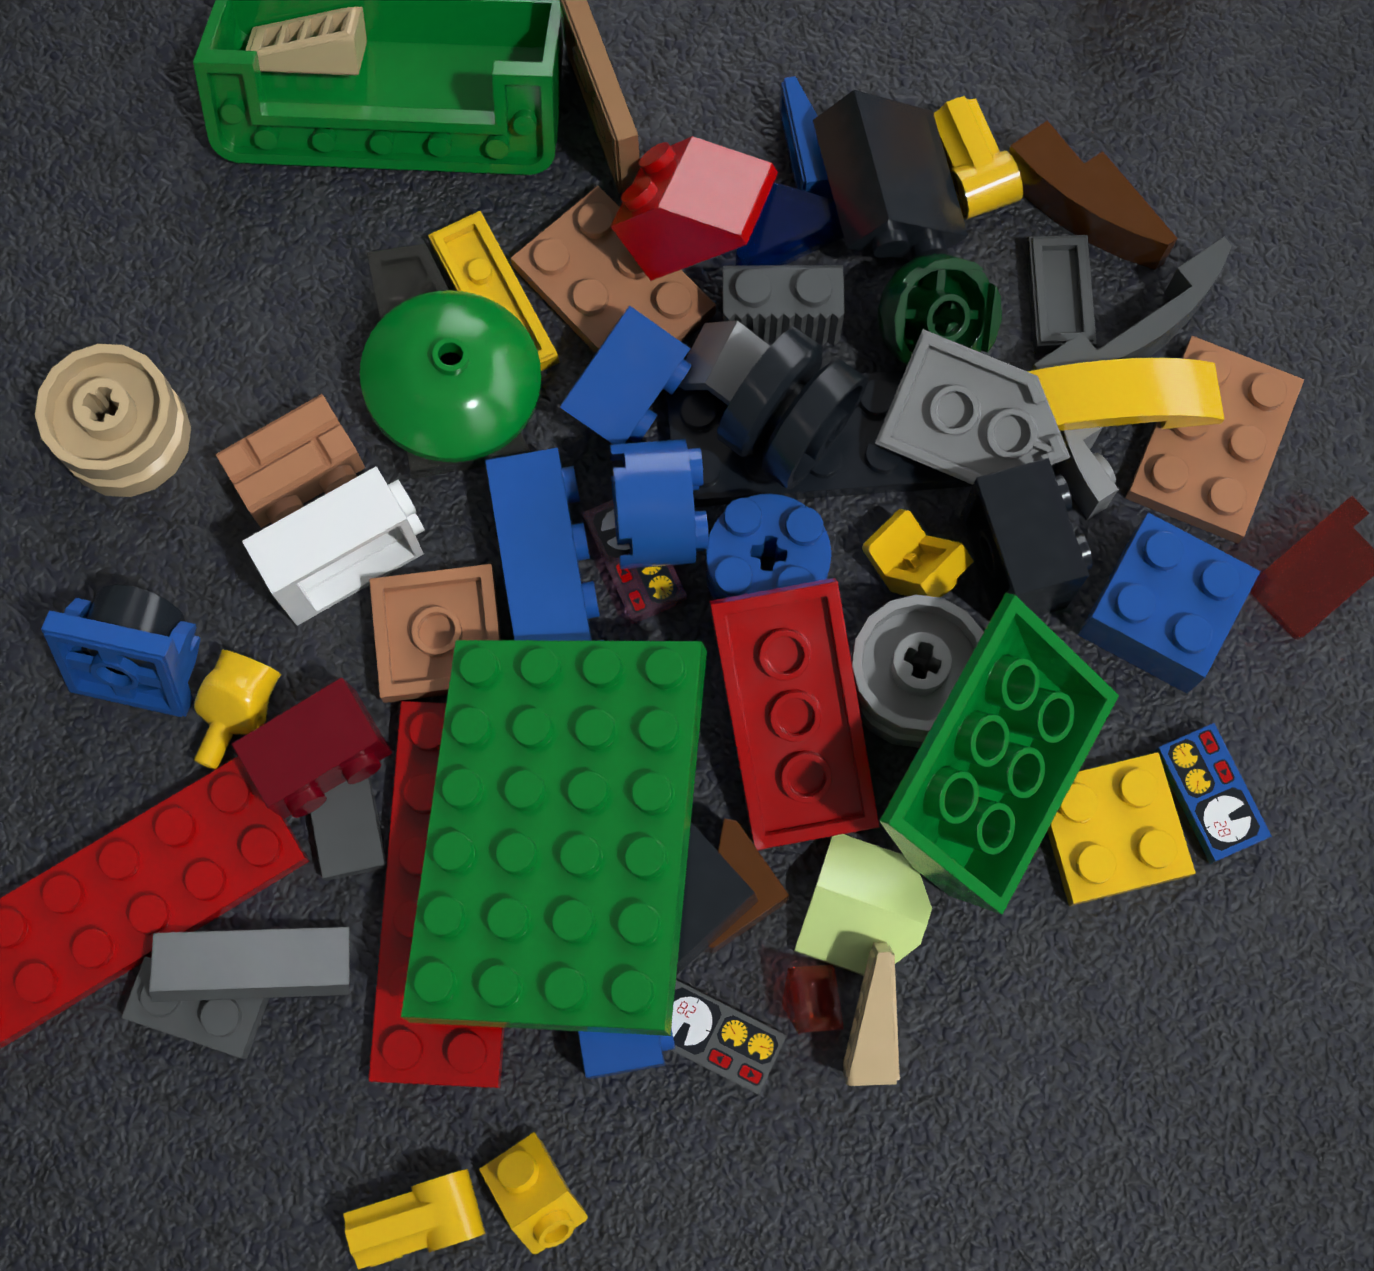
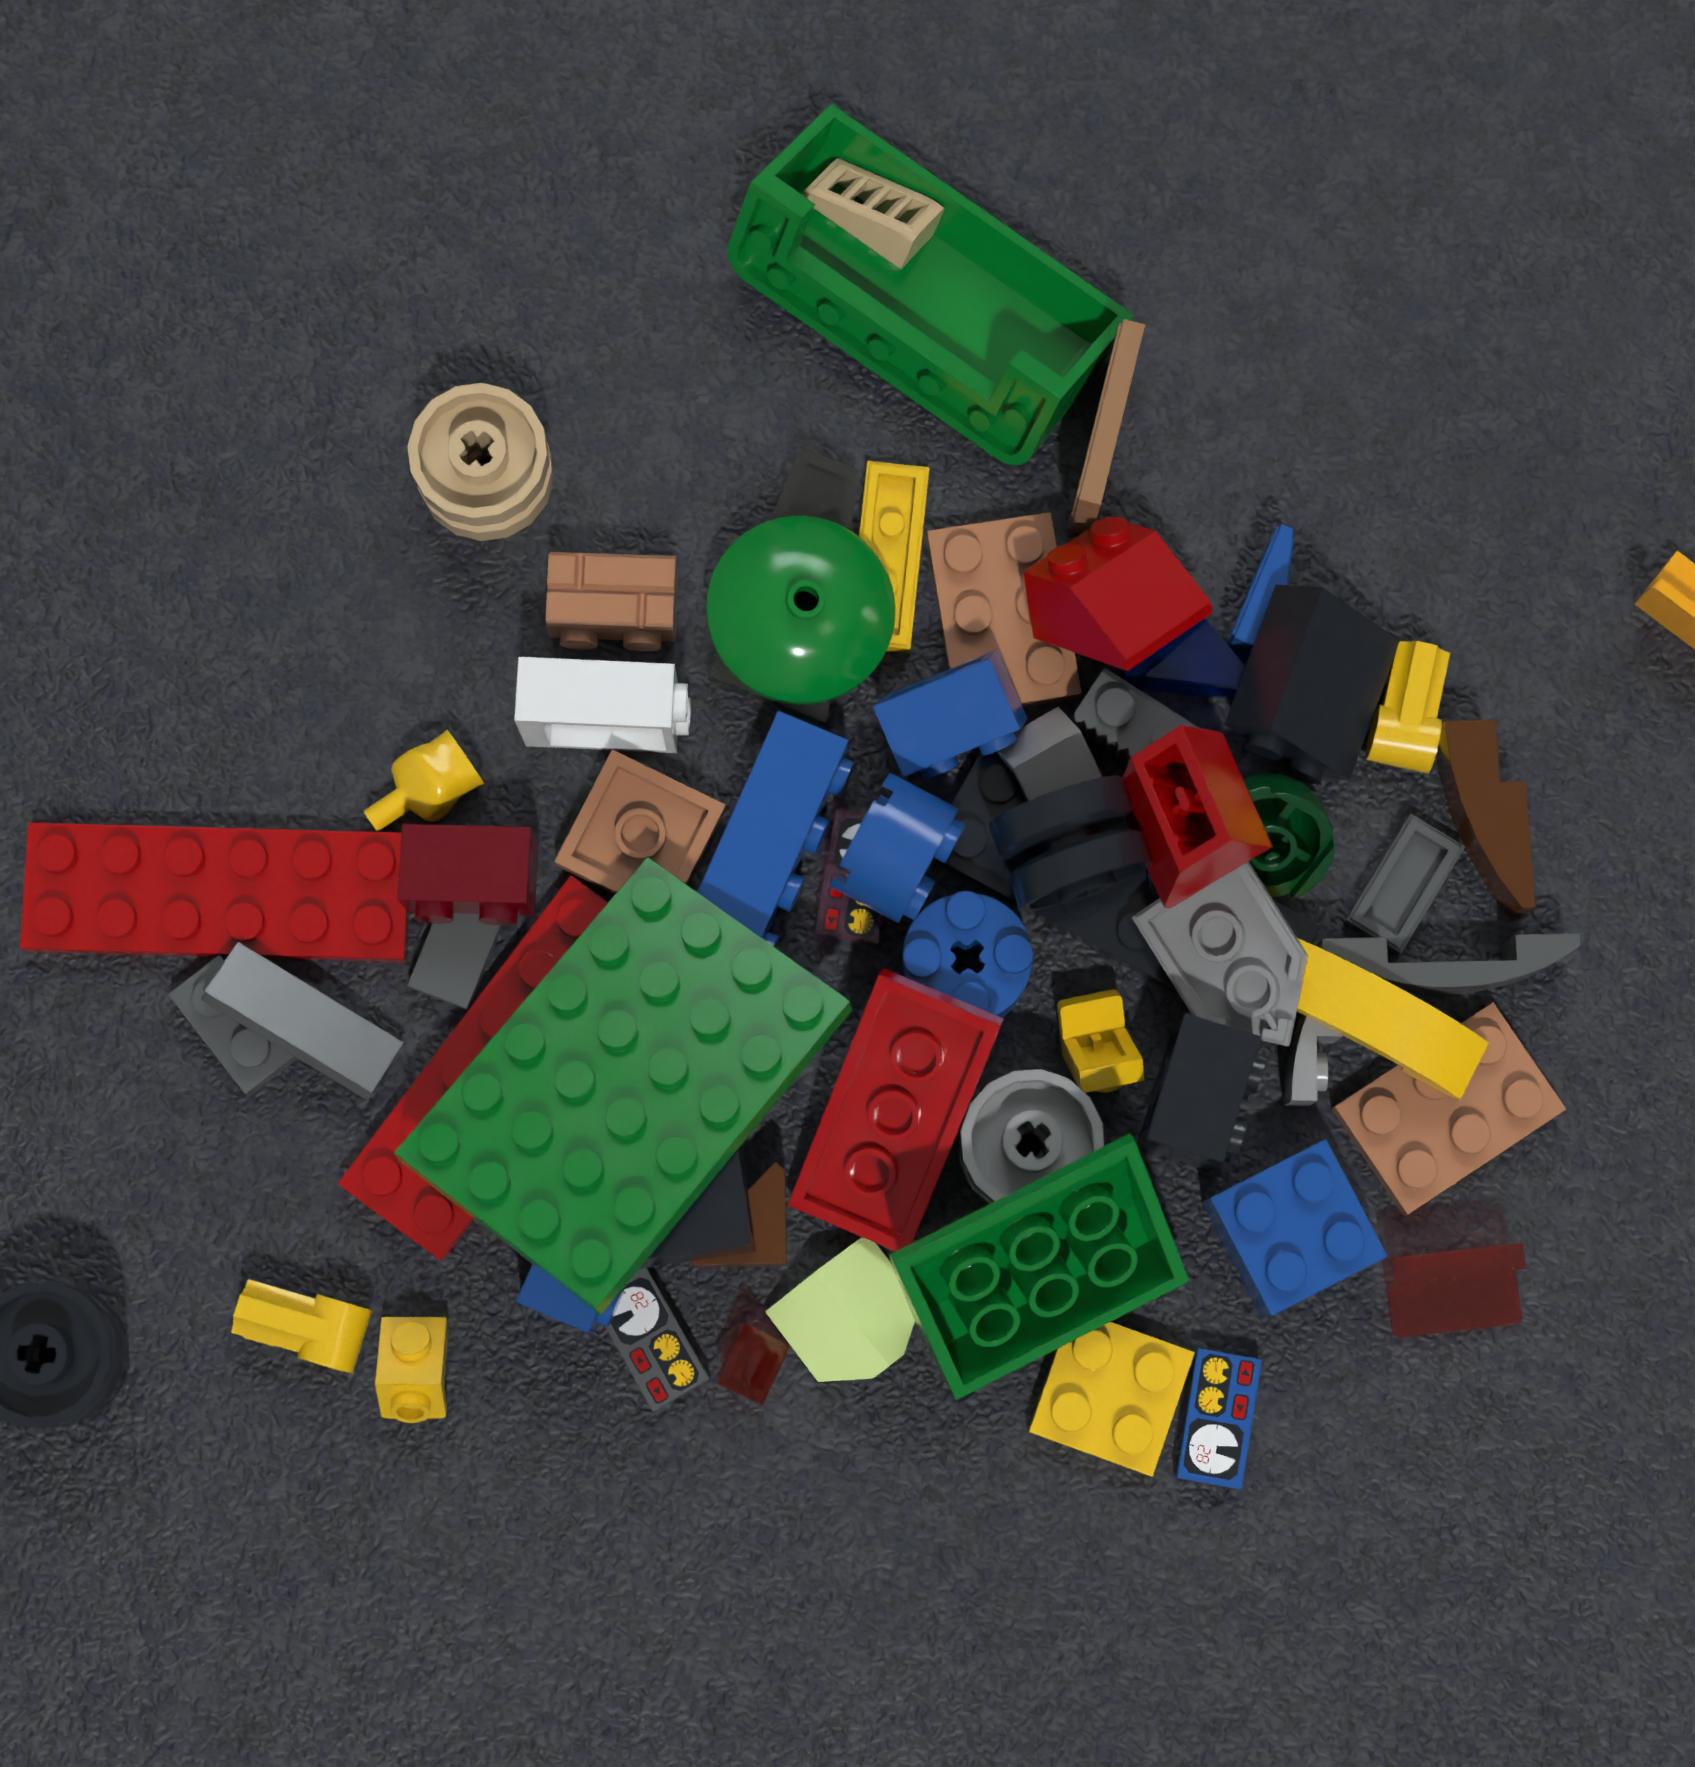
camera: 30 degrees right, 5 degrees up
(130, 635) = (376, 680): blue piece -> none
(872, 321) = (1192, 811): none -> red slope
(873, 1039) = (777, 1431): tan slope -> none

